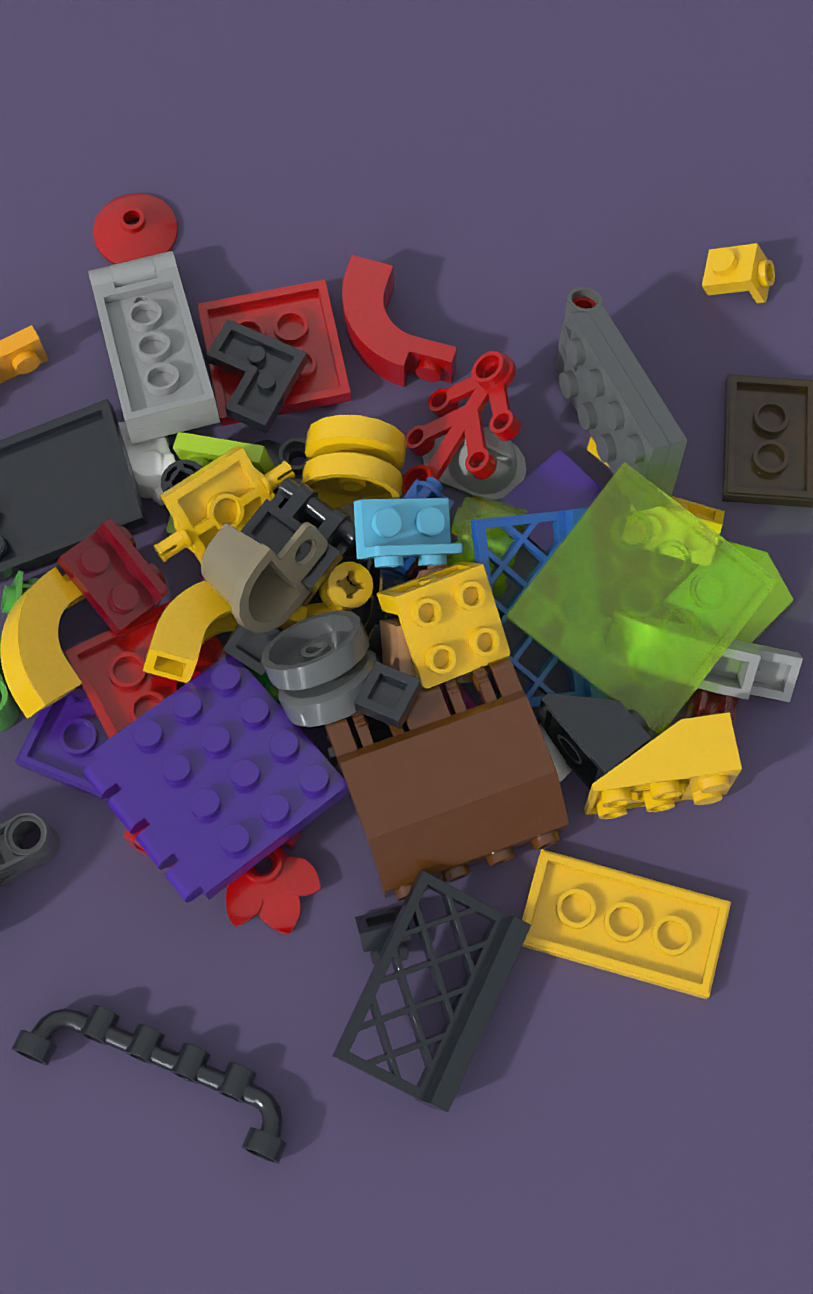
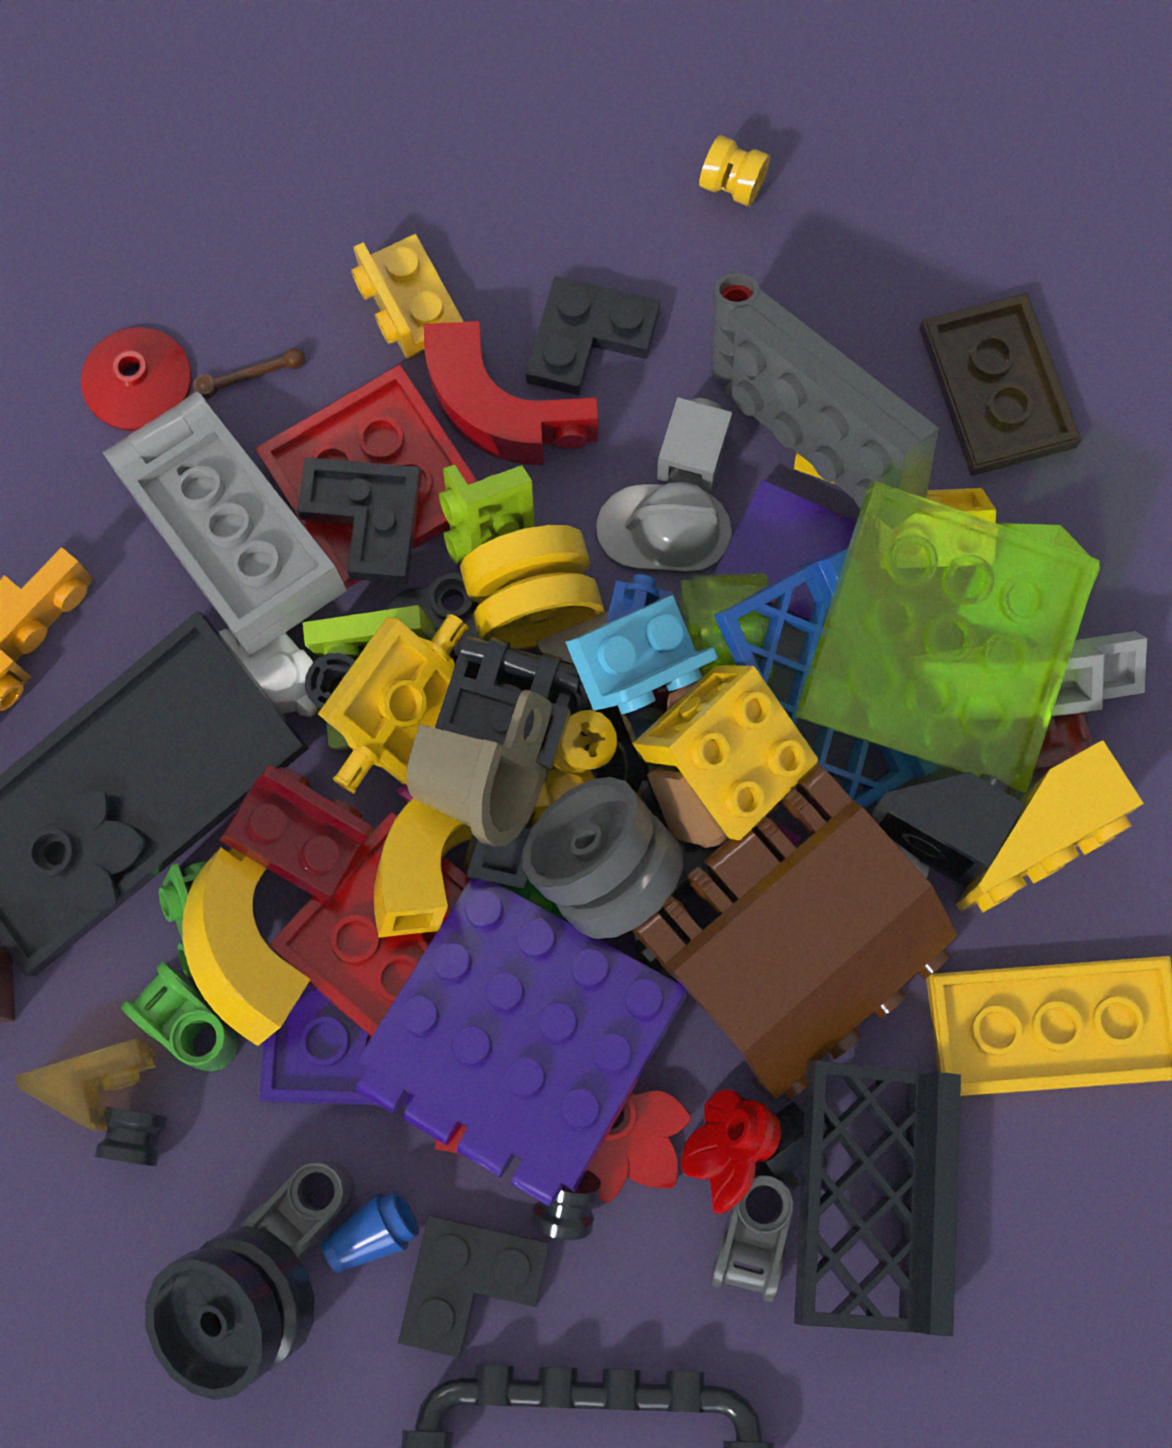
camera: 20 degrees left, 5 degrees up
(56, 883) = (371, 1233): none -> blue cone
(108, 931) = (454, 1266): none -> black plate
(183, 252) = (207, 386): none -> reddish brown hinge
(203, 916) = (570, 1213): none -> black wheel
(330, 991) = (754, 1244): none -> dark grey piece
(331, 918) = (730, 1145): none -> red plate
(342, 393) = (484, 508): none -> lime bracket
(352, 229) = (405, 291): none -> yellow bracket
(388, 695) = (700, 867): black plate -> none
(473, 292) = (585, 318): none -> black plate
(489, 380) = (644, 487): red plant -> none
(529, 402) = (694, 443): none -> light grey brick
(628, 221) = (734, 170): none -> yellow wheel
(739, 270) = (886, 189): yellow bracket -> none

